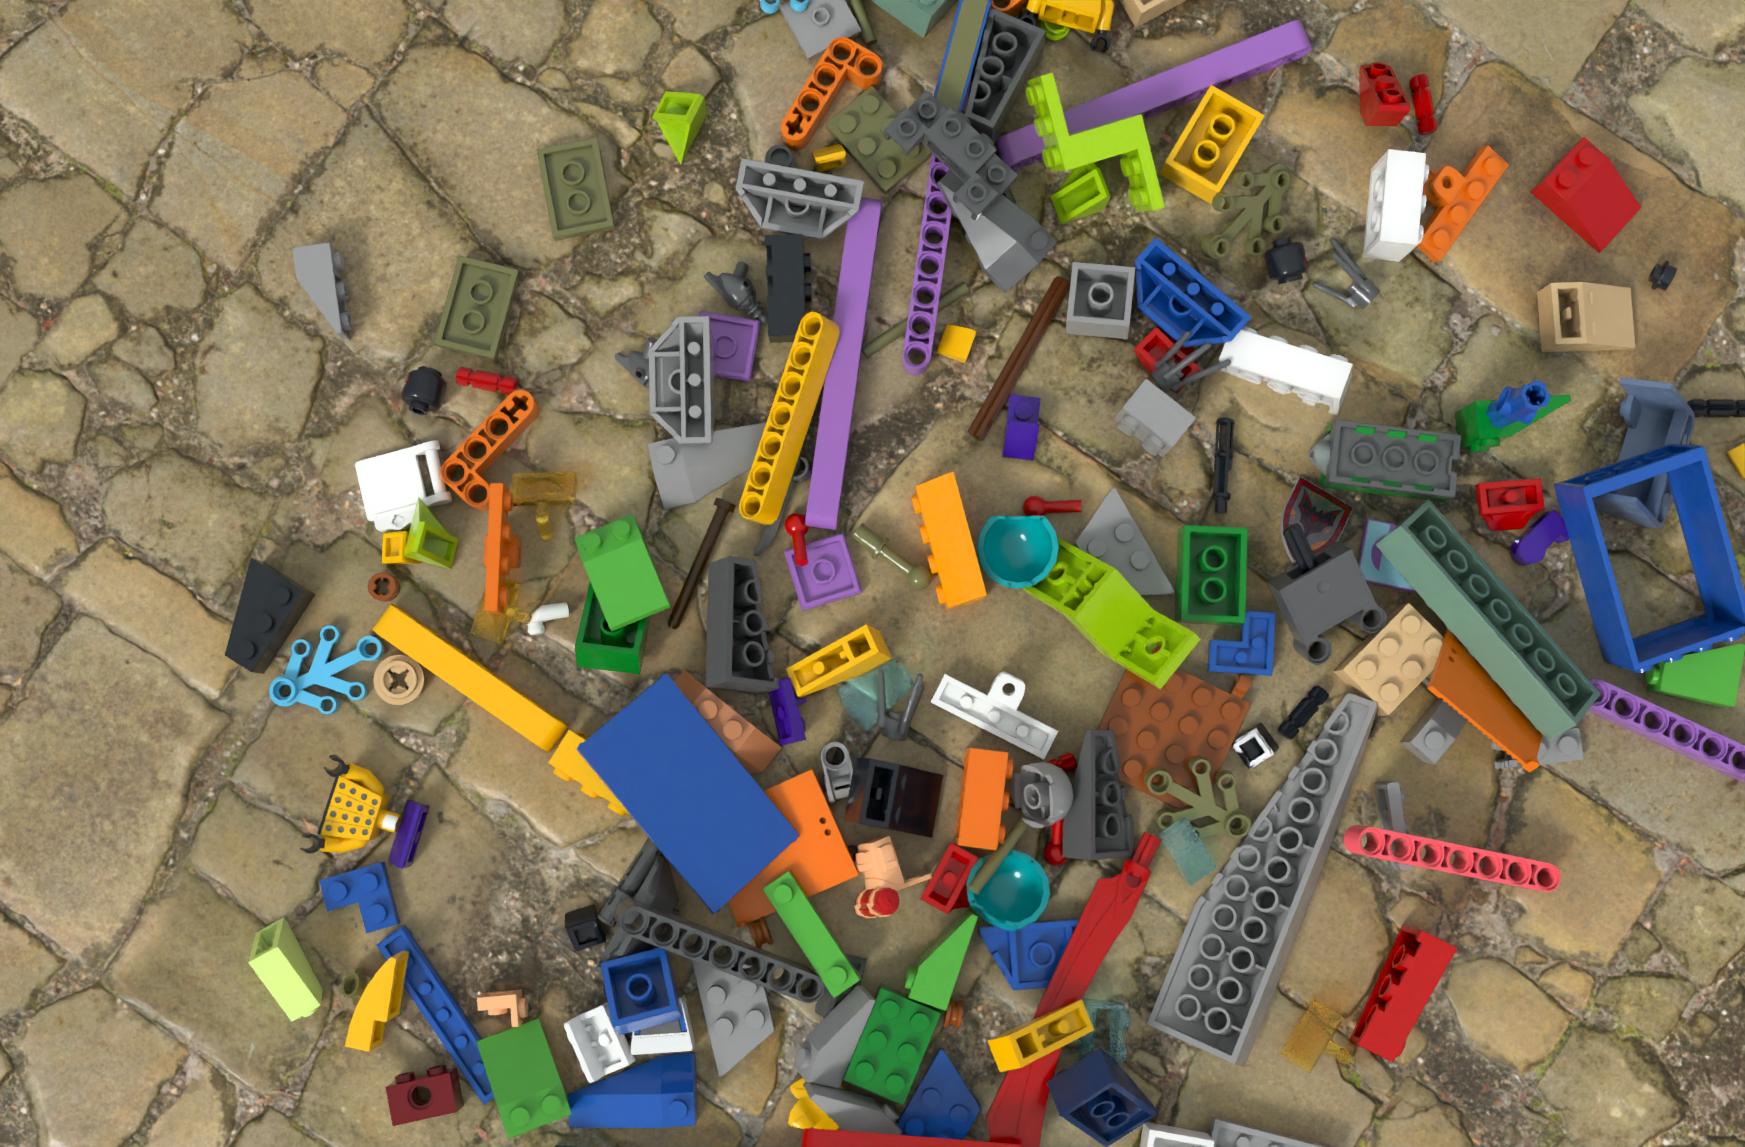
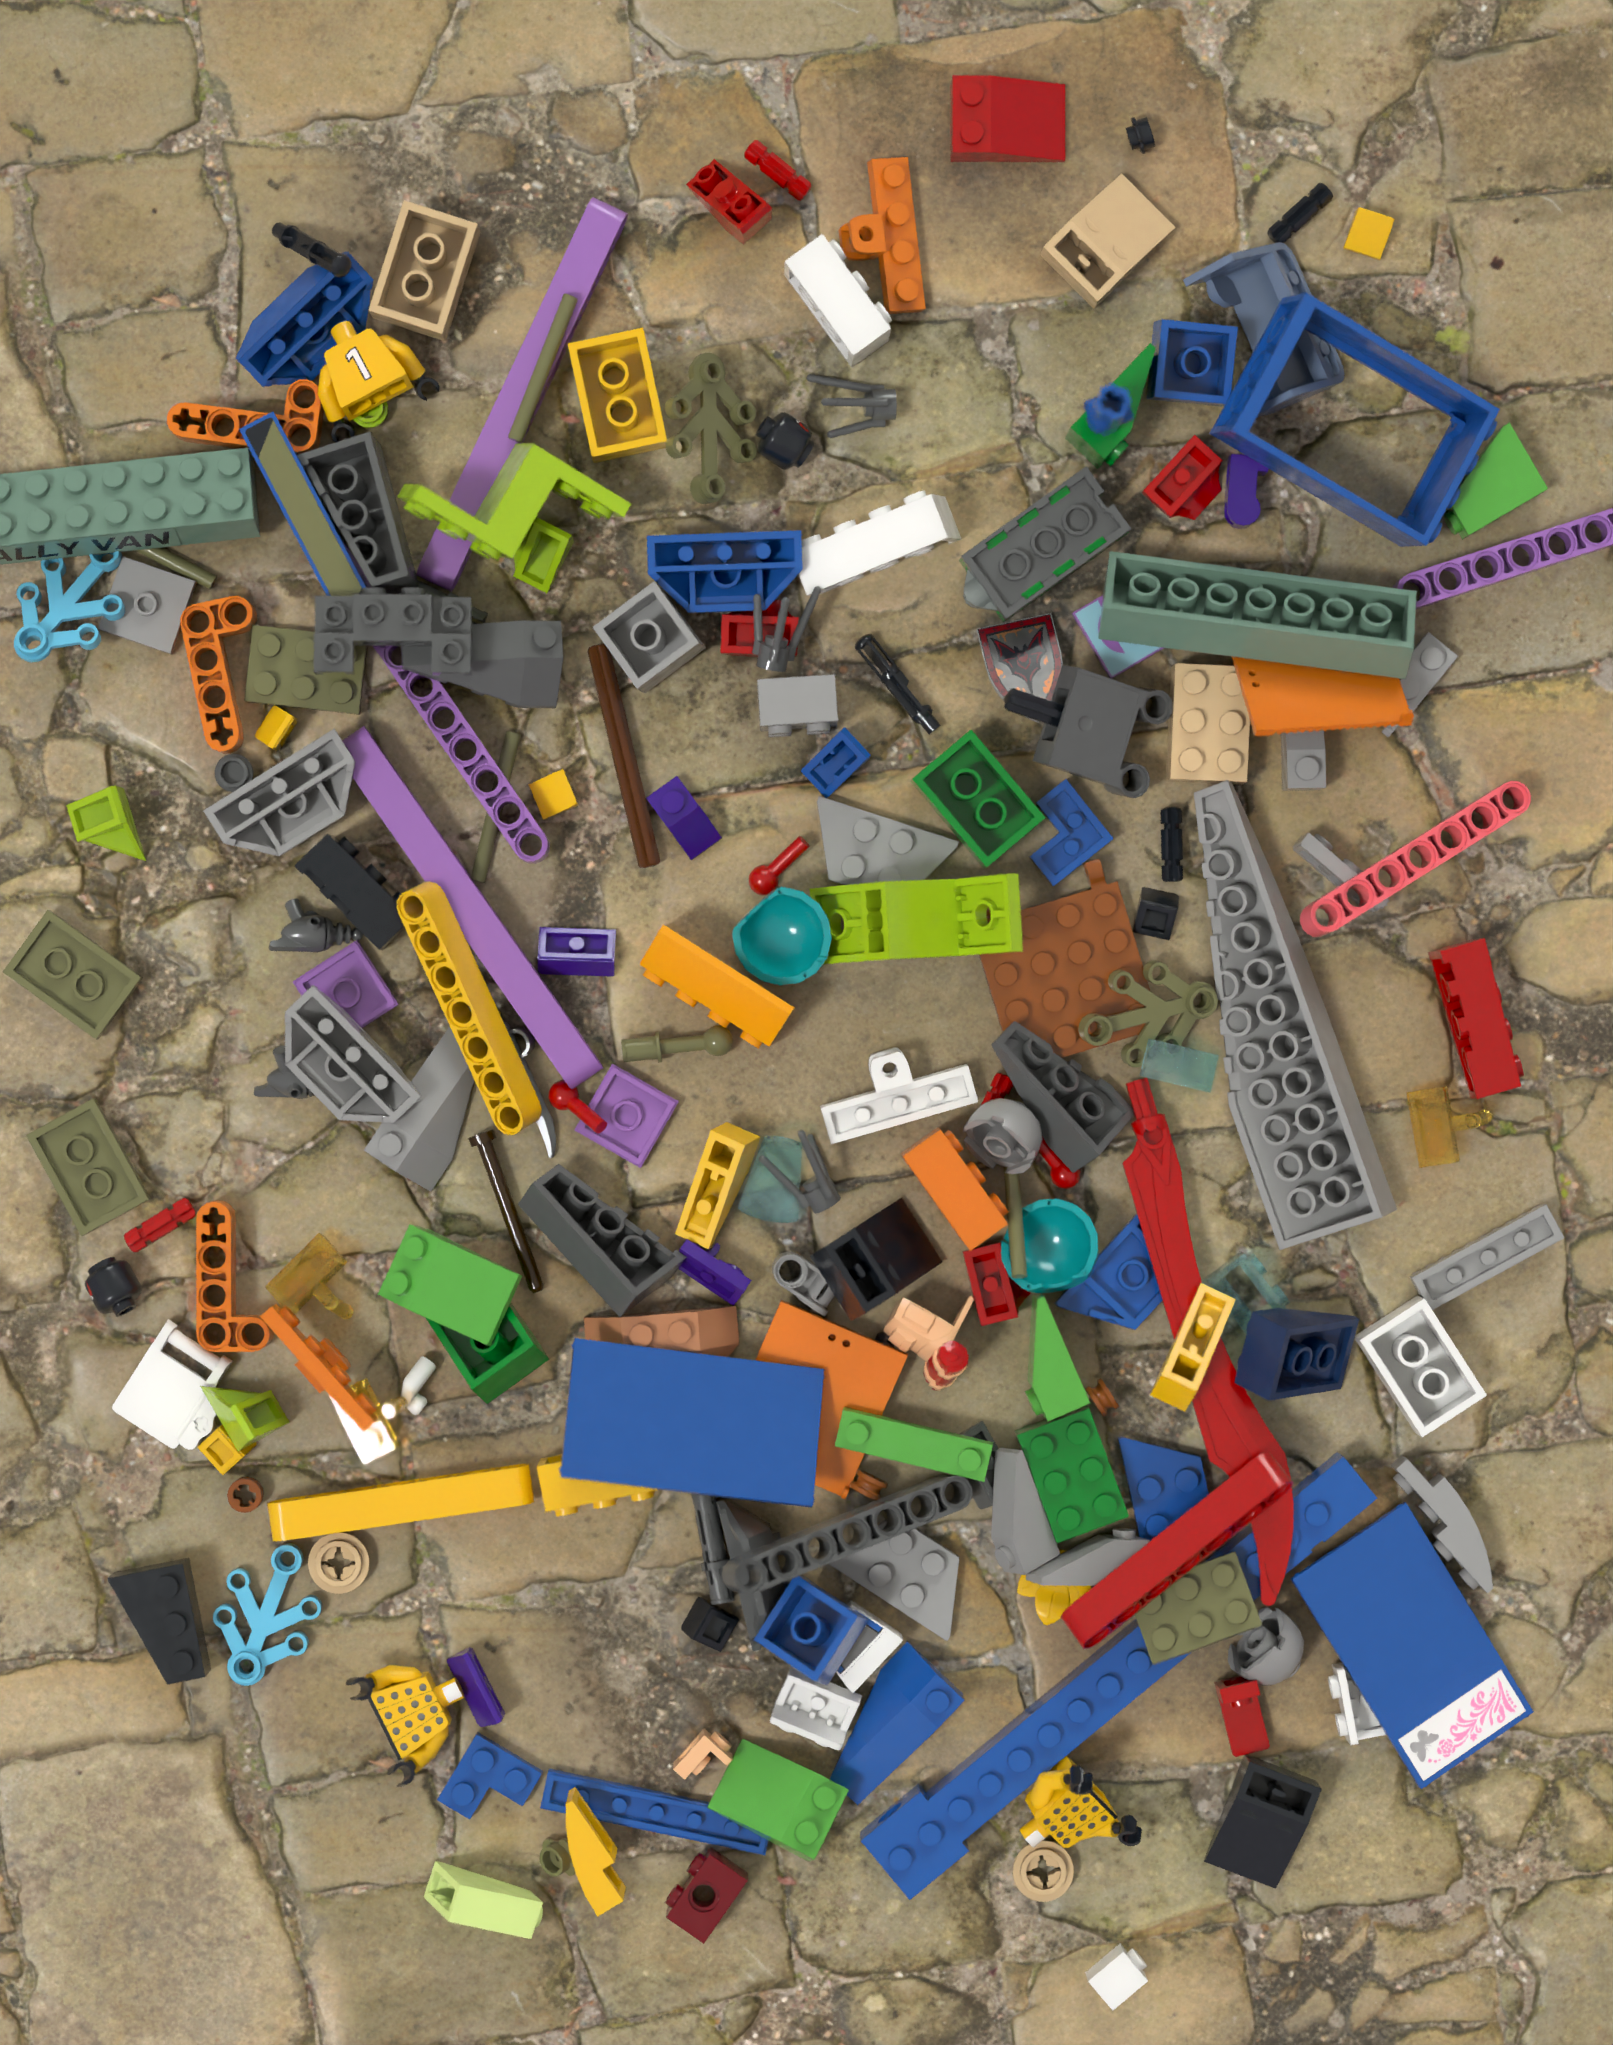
camera: 40 degrees left, 5 degrees up
(883, 448) = (576, 951): none -> dark purple slope
(1145, 476) = (836, 763): none -> blue slope
(1182, 87) = (542, 368): none -> olive bar
(1578, 434) = (1192, 362): none -> blue brick

